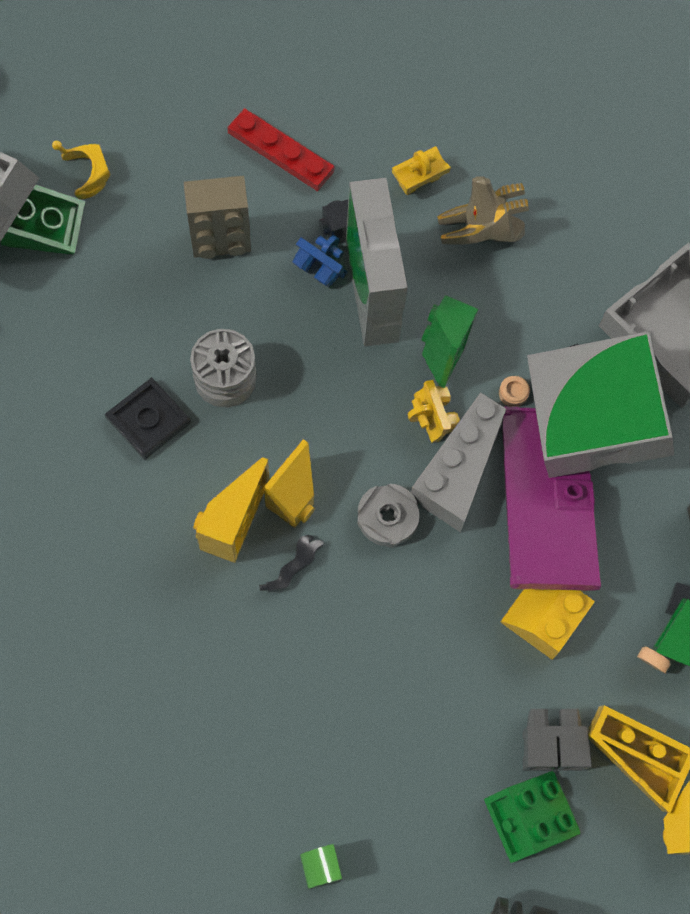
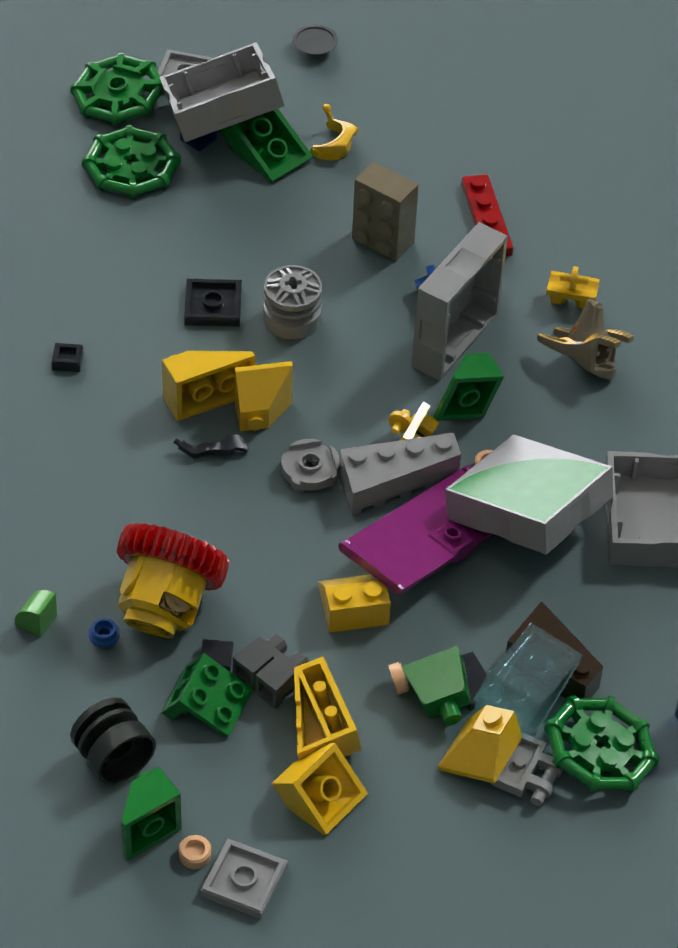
camera: 45 degrees right, 20 degrees down
(81, 580) = (67, 357): none -> black tile
(400, 824) = (104, 626): none -> blue plate
(410, 745) = (166, 577): none -> piece
(497, 767) = (219, 651): none -> black tile

